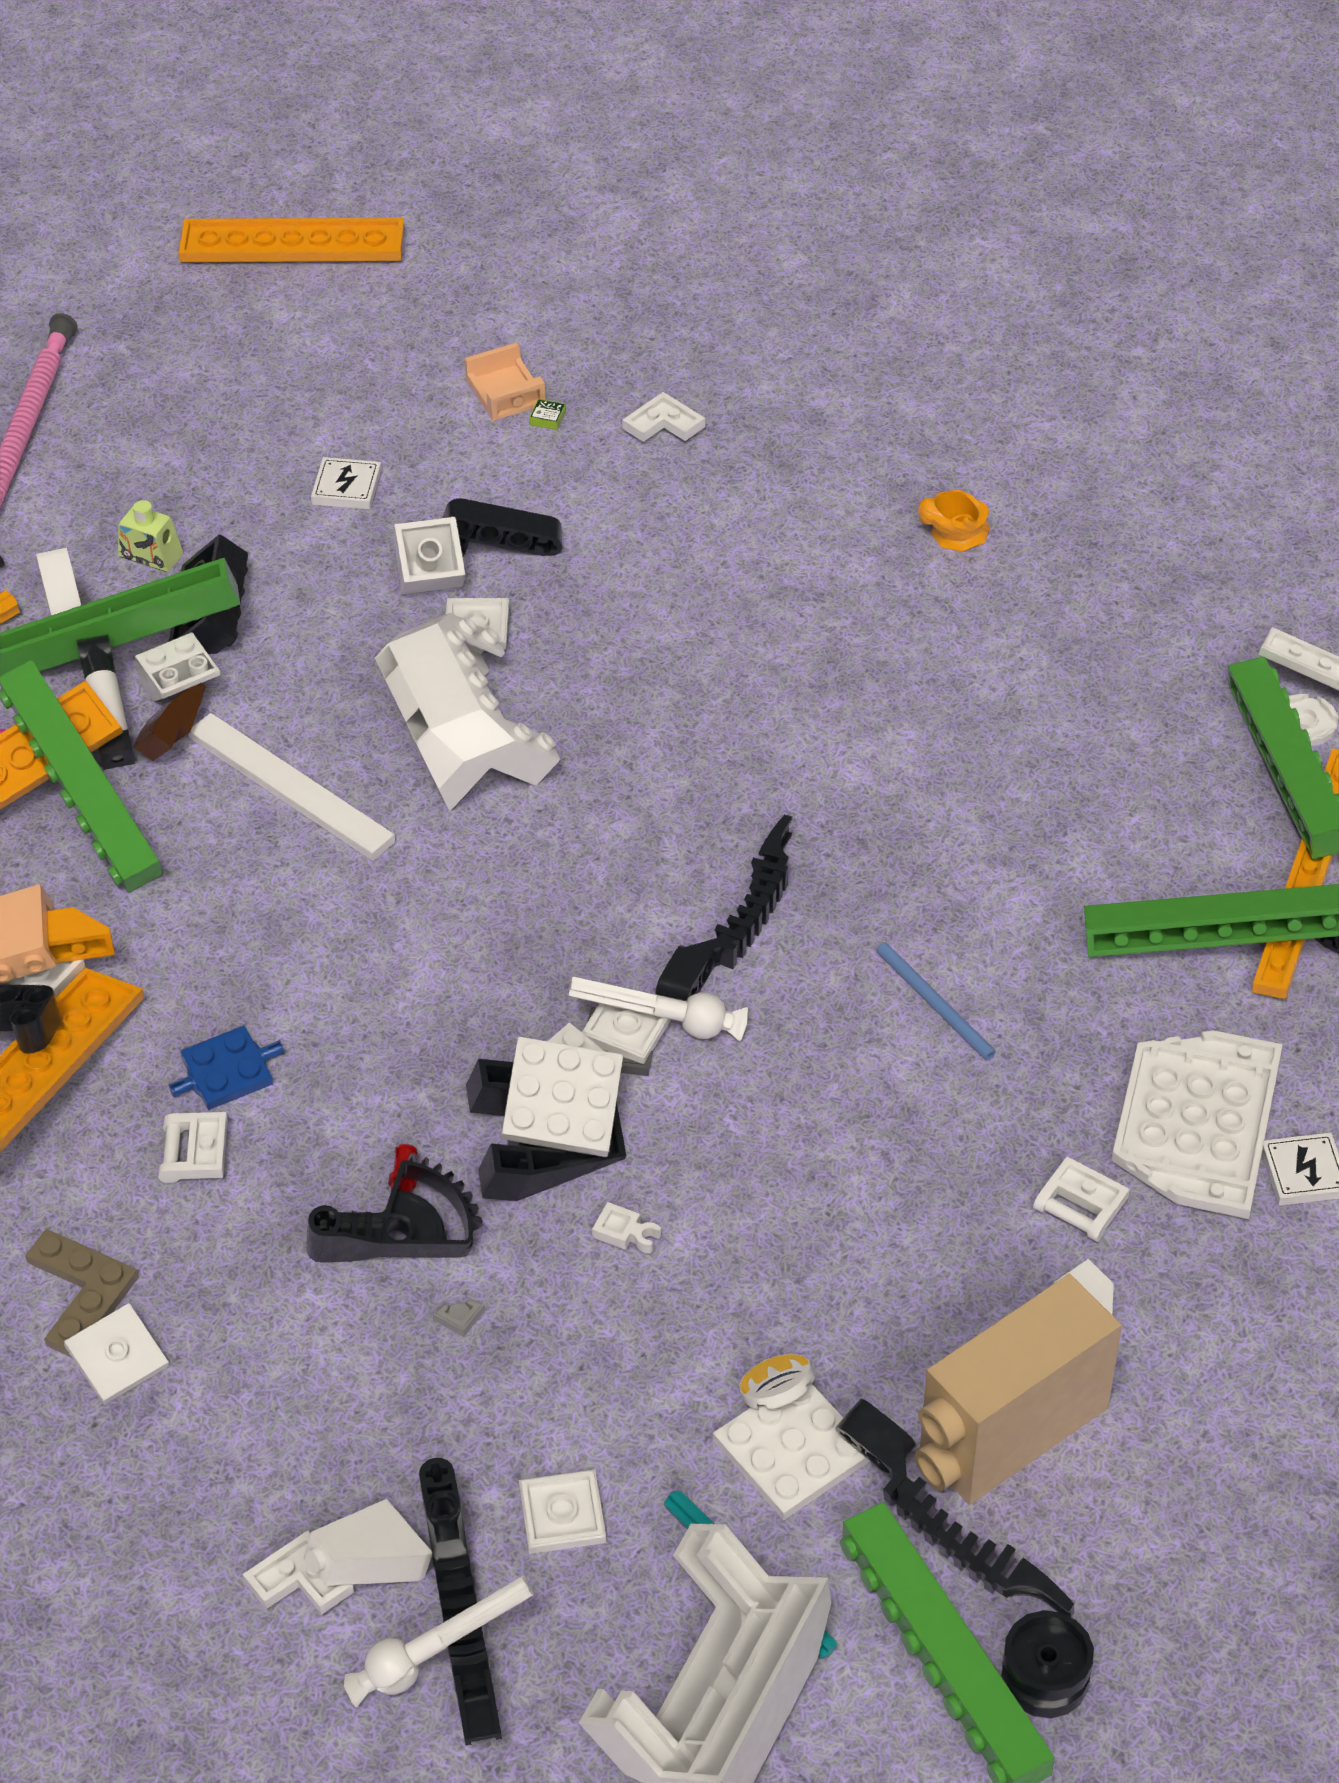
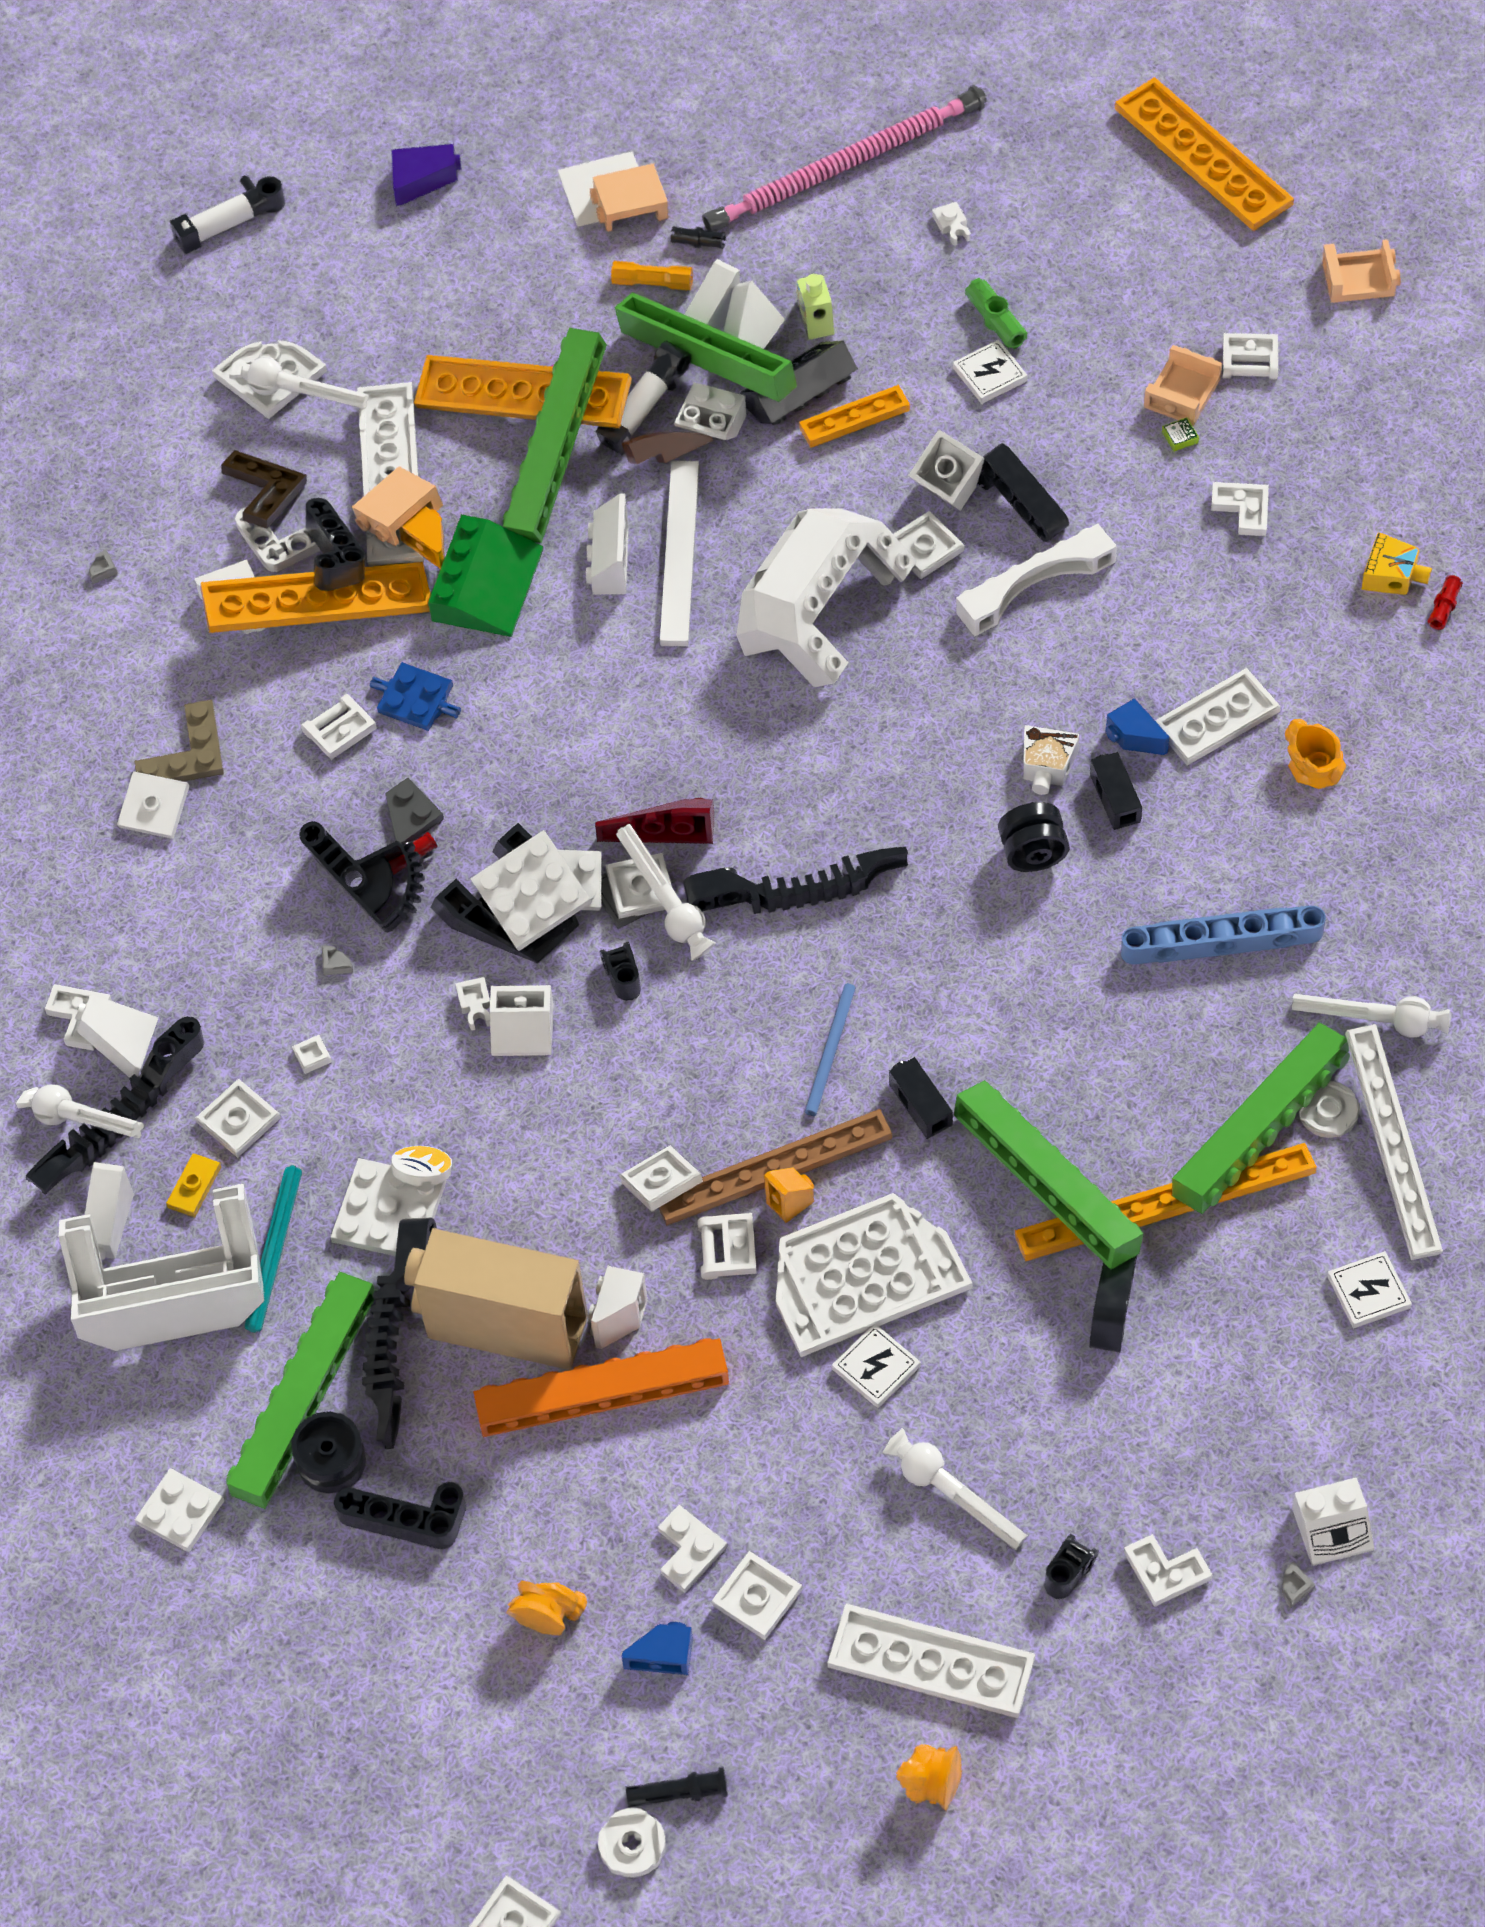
camera: 55 degrees right, 10 degrees up
(105, 573) = (752, 315): none -> white slope
(158, 935) = (484, 577): none -> green slope
(164, 414) = (952, 220): none -> white plate
(237, 819) = (608, 548): none -> white slope
(289, 588) = (854, 416): none -> light orange plate
(296, 441) = (996, 313): none -> bright green piece
(352, 1151) = (411, 811): none -> dark grey wing
(518, 324) = (1250, 348): none -> white plate
(519, 228) = (1360, 273): none -> light nougat panel
(548, 1401) = (311, 1054): none -> white tile
(564, 1682) = (108, 1206): none -> white slope
(585, 618) = (1082, 554): none -> white arch
(587, 955) = (674, 822): none -> dark red wedge
(606, 1600) = (193, 1185): none -> yellow plate
(688, 1200) = (521, 1020): none -> white slope
(705, 1094) = (621, 967): none -> black piece
(782, 676) = (1048, 757): none -> torso
(817, 606) = (1136, 730): none -> blue slope
(820, 373) = (1393, 566): none -> yellow torso
(850, 557) = (1218, 716): none -> white tile
(862, 655) = (1115, 790): none -> black brick
(865, 725) = (1033, 837): none -> black wheel
(895, 377) = (1445, 602): none -> red pin
(966, 1201) = (661, 1178): none -> white tile
(1026, 1117) = (801, 1155): none -> medium nougat plate
(1052, 965) = (920, 1097): none -> black brick
(1072, 1117) = (788, 1192): none -> light orange slope
(1075, 678) = (1222, 934): none -> medium blue beam
(1155, 1393) = (601, 1387): none -> orange brick
(1161, 1648) = (400, 1511): none -> black beam
(1265, 612) = (1410, 1016): none -> white piece

